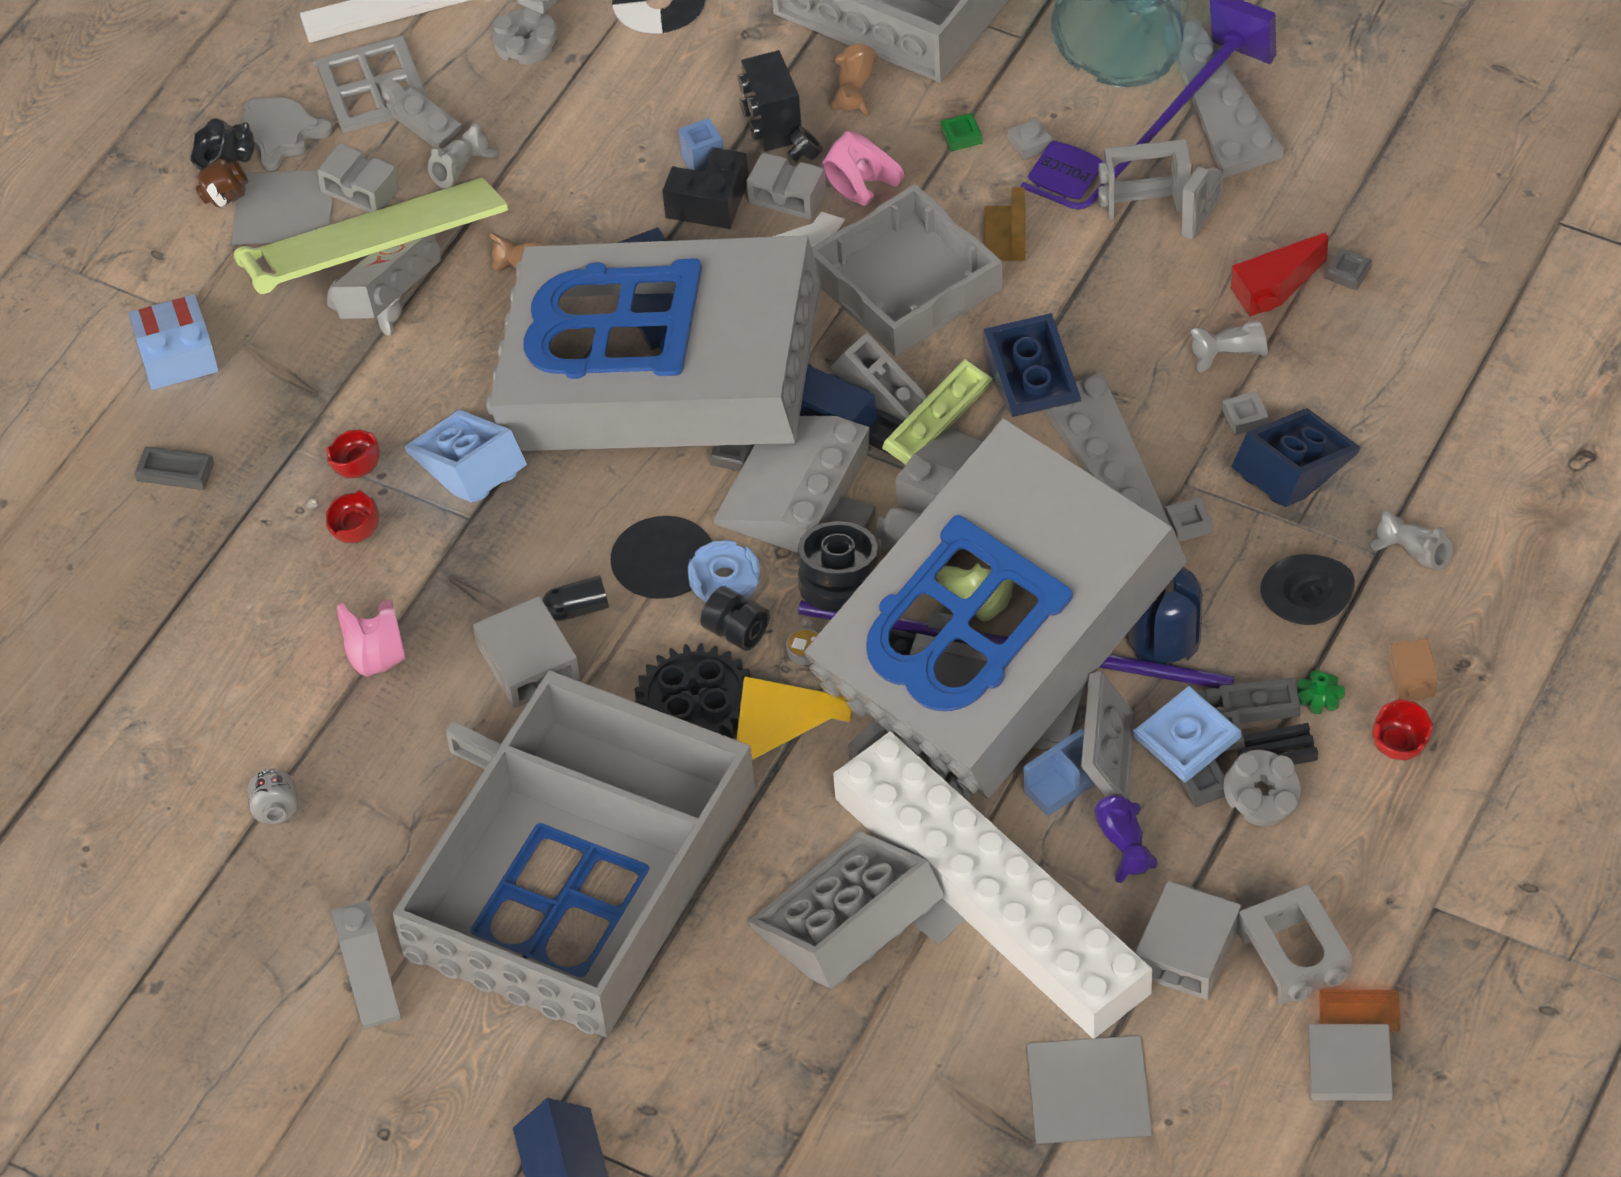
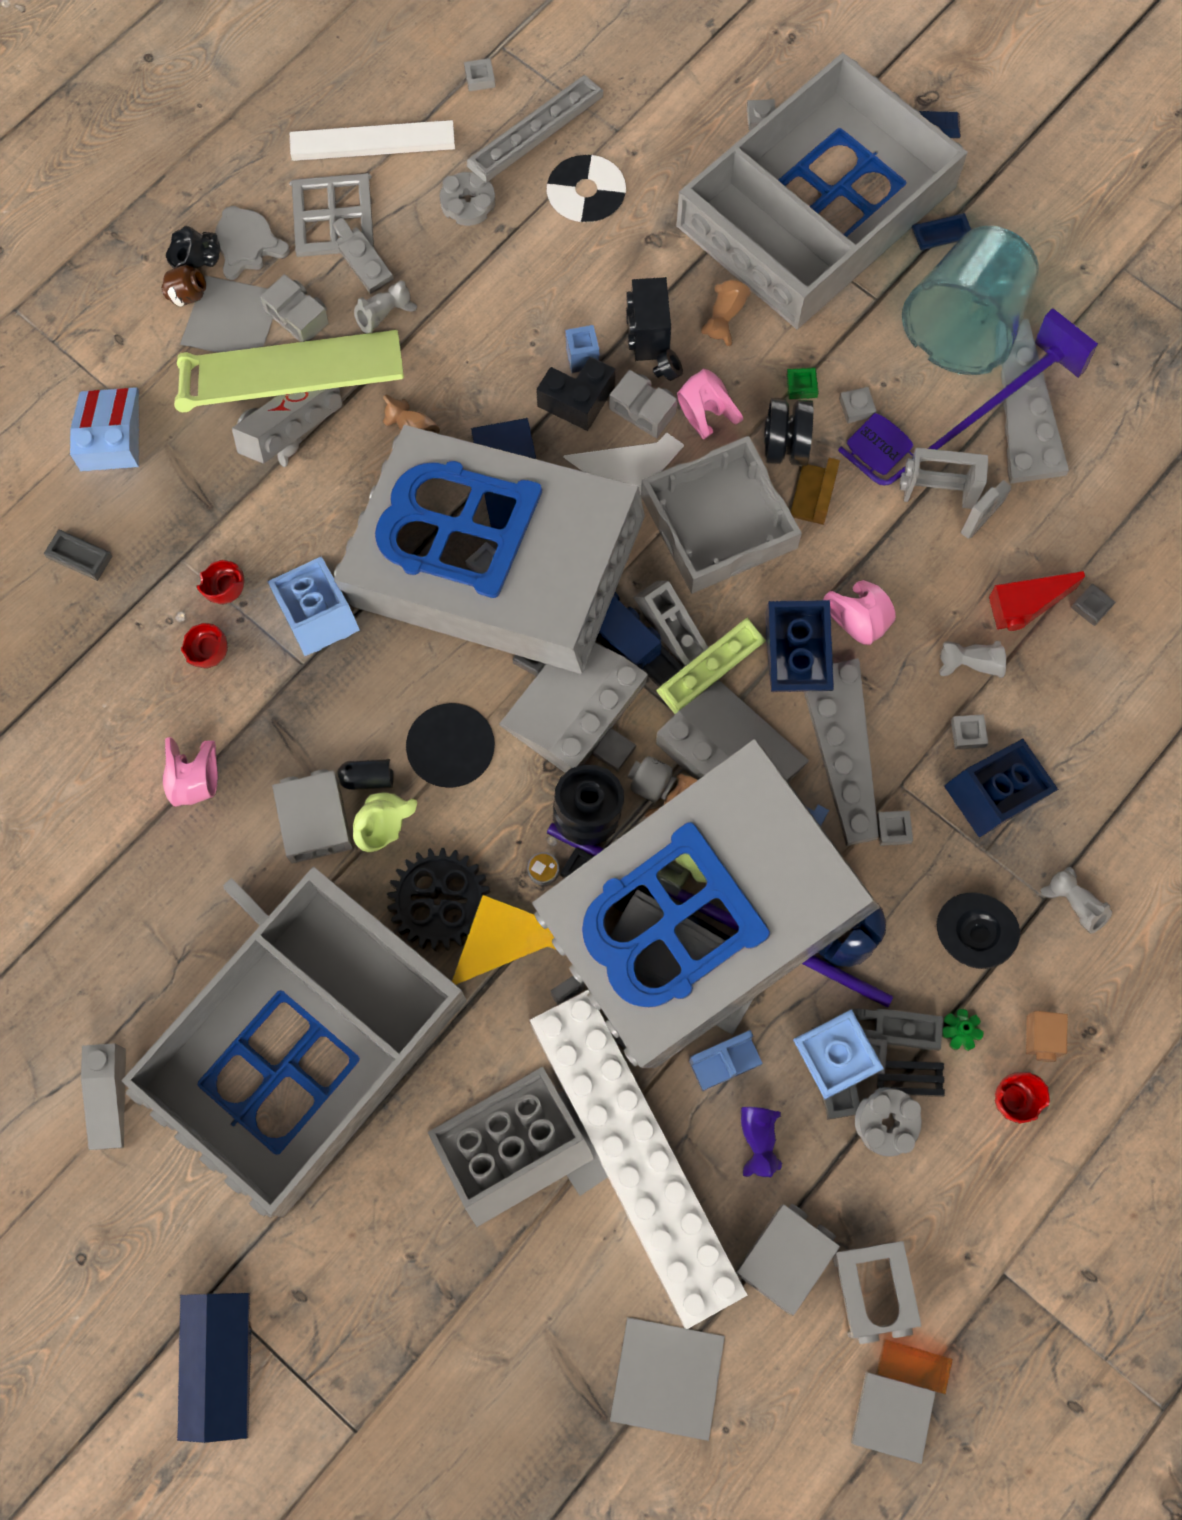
camera: 10 degrees right, 20 degrees up
(272, 794) = (70, 906): light grey head -> none
(606, 635) = (381, 820): none -> yellowish green hair
(723, 555) = (495, 794): light blue tile -> none
(731, 616) = (483, 823): black wheel -> none
(959, 171) = (788, 432): none -> black wheel
(1093, 325) = (863, 617): none -> bright pink helmet
(1107, 737) = (769, 1044): light grey tile -> none

